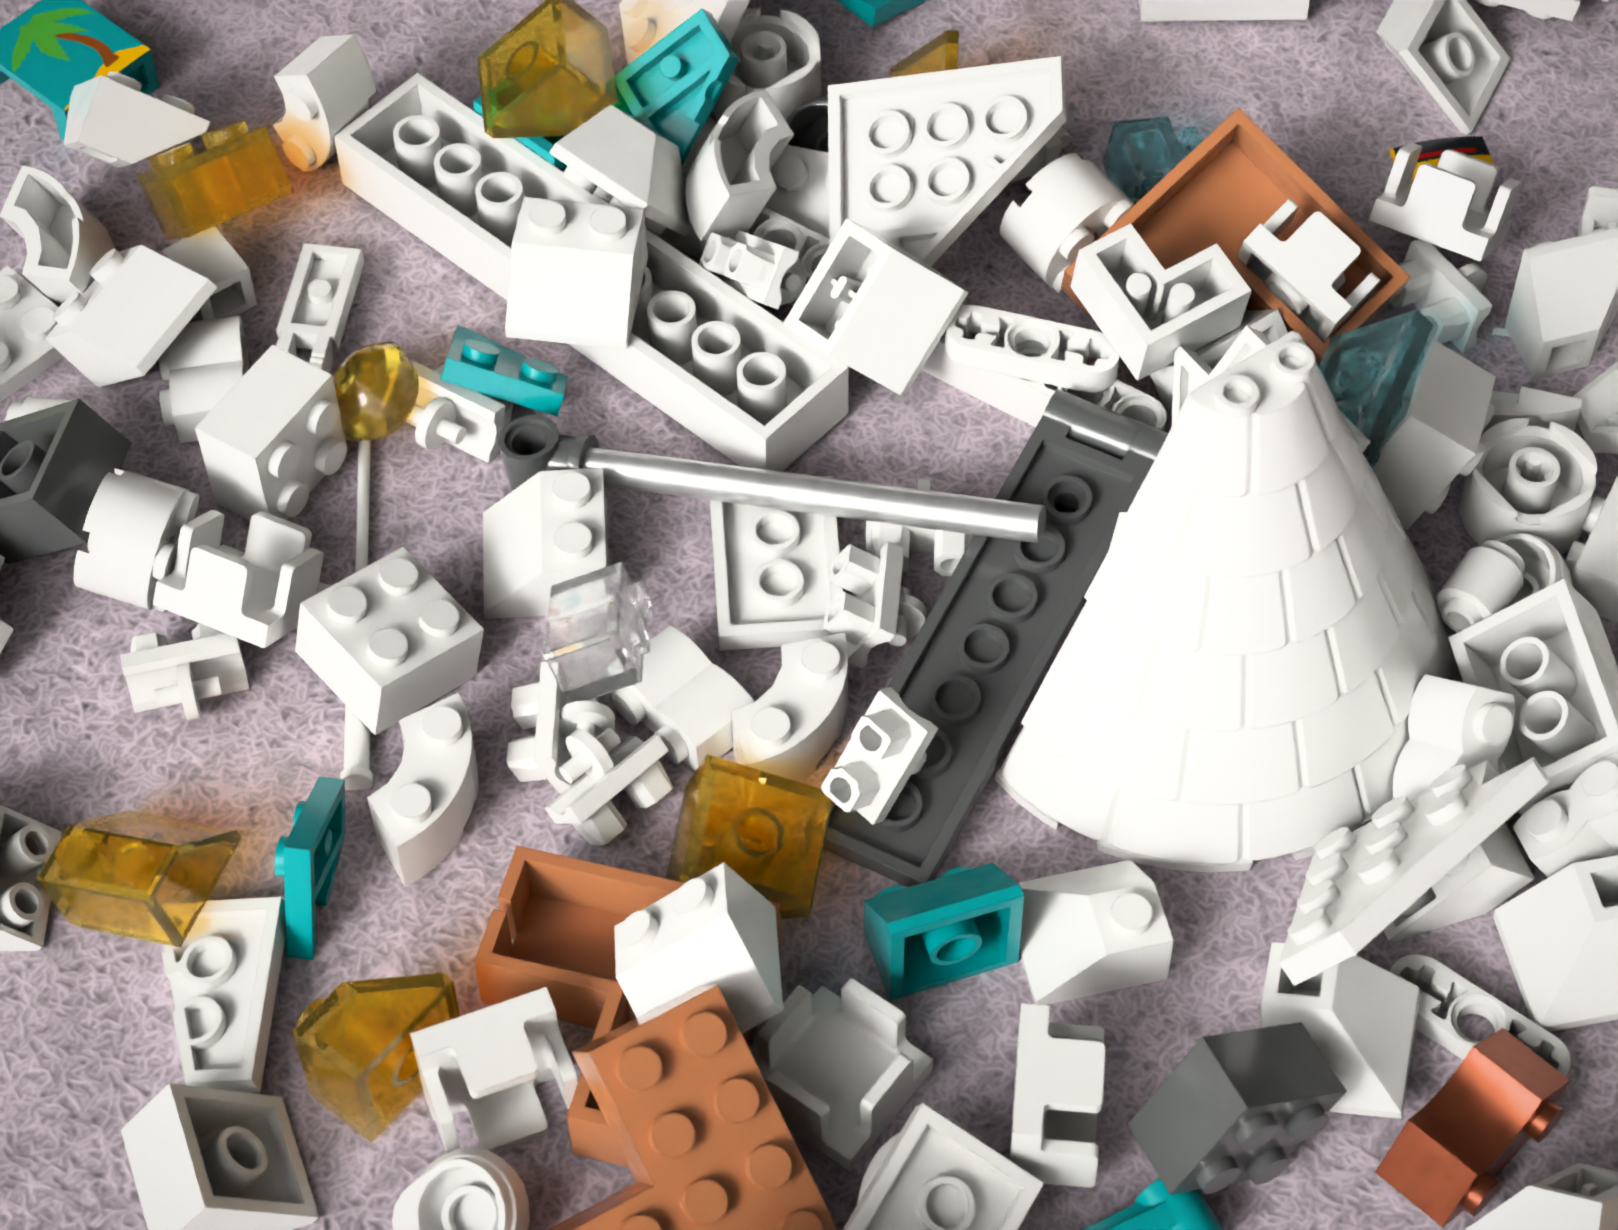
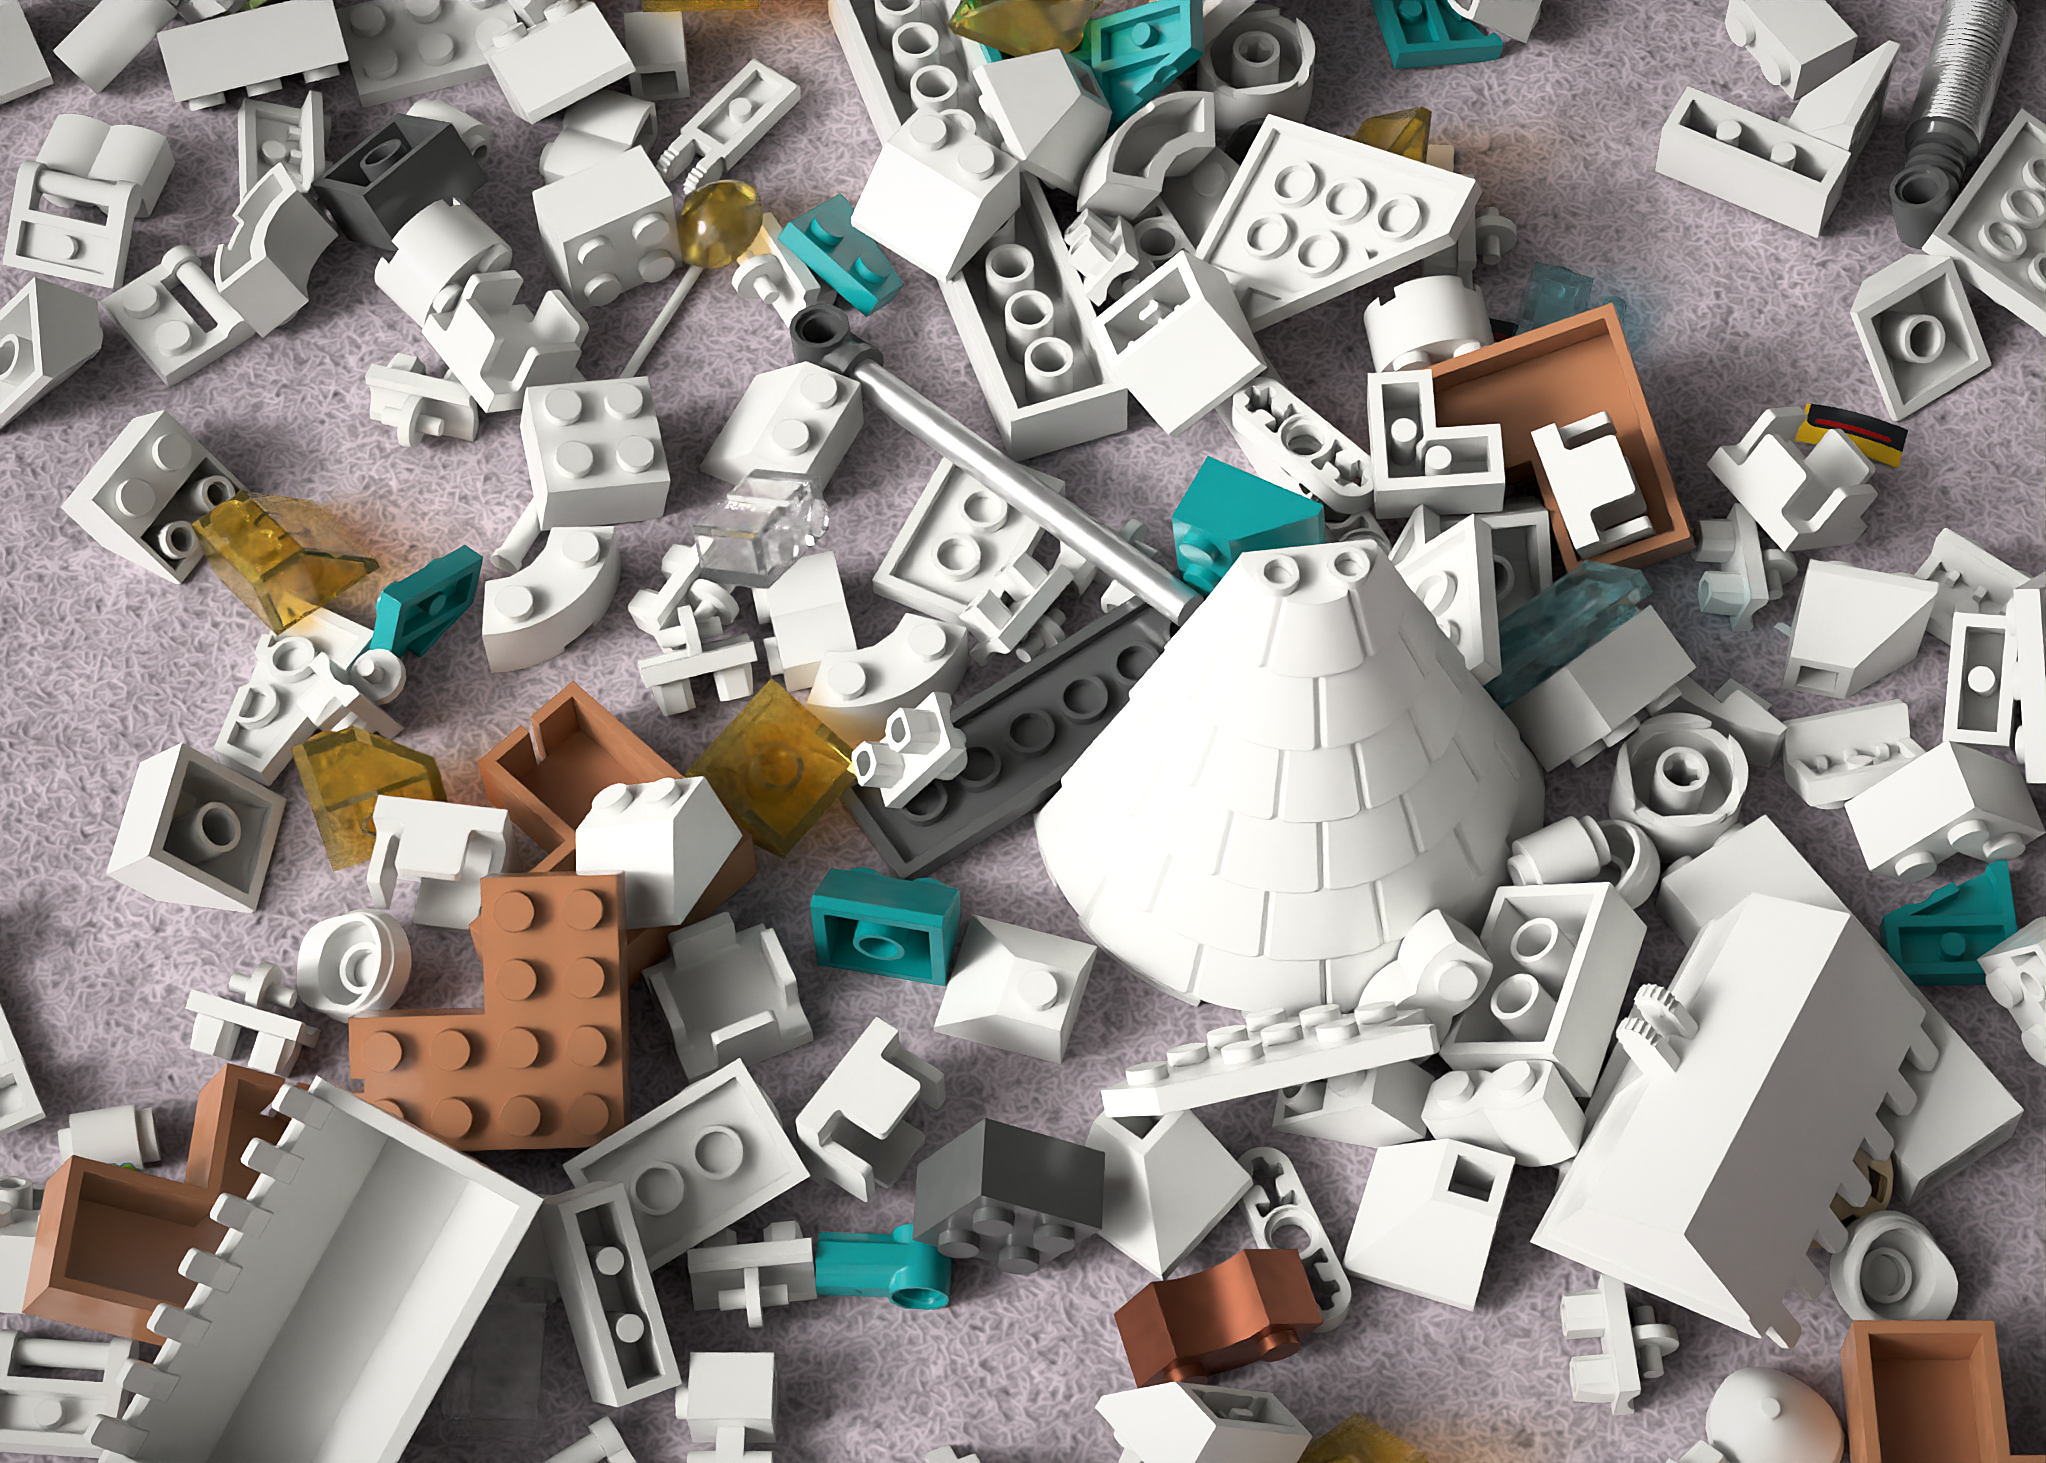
camera: 30 degrees right, 5 degrees up
(306, 964) = (353, 697): none -> white hips
(1061, 429) = (1235, 514): none -> teal slope

